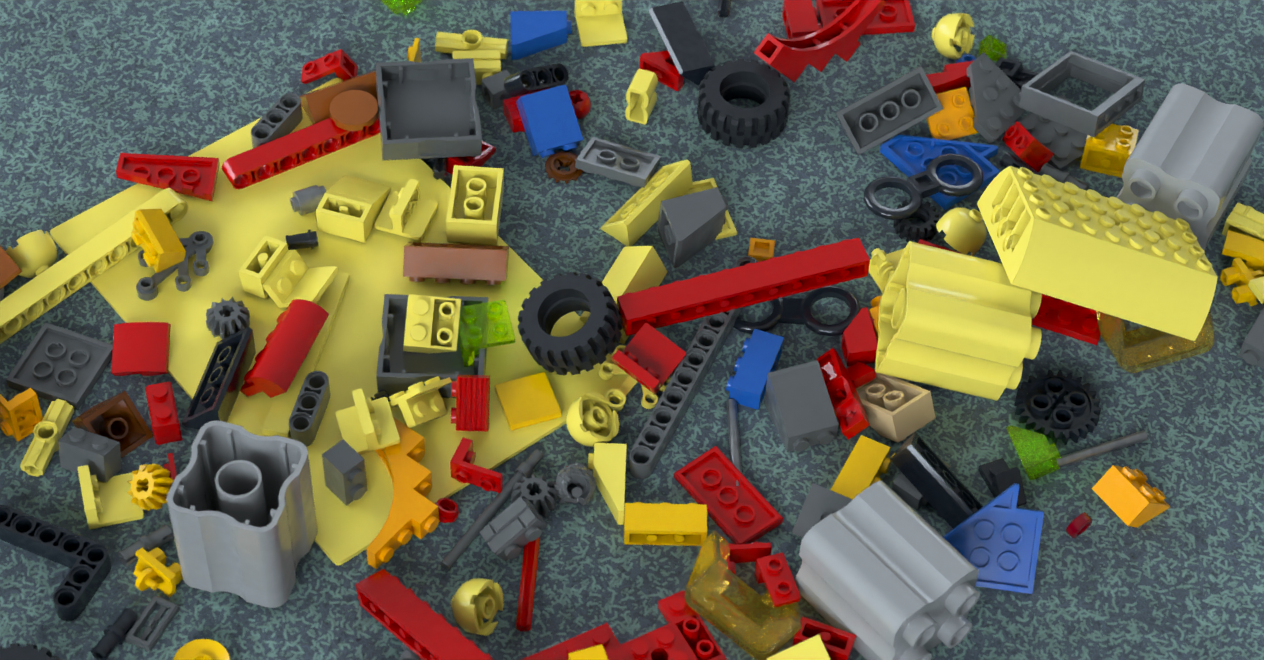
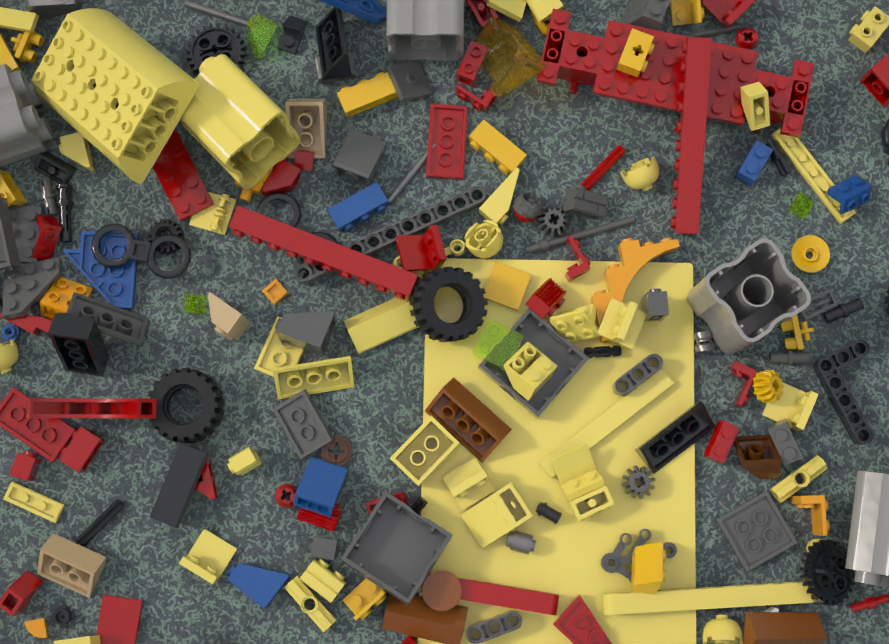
camera: 135 degrees left, 30 degrees up
(140, 348) = (703, 503): red slope -> none
(285, 349) = (624, 425): red brick -> none
(447, 510) = (604, 247): red plate -> none
(536, 79) = (300, 529): black beam -> none
(781, 179) = (227, 319): none -> tan slope
(827, 191) = (194, 303): none -> clear neon green slope
(843, 394) = (327, 151): red slope -> none
(887, 61) = (79, 344): none -> black brick
(963, 229) = (151, 201): light yellow cylinder -> none

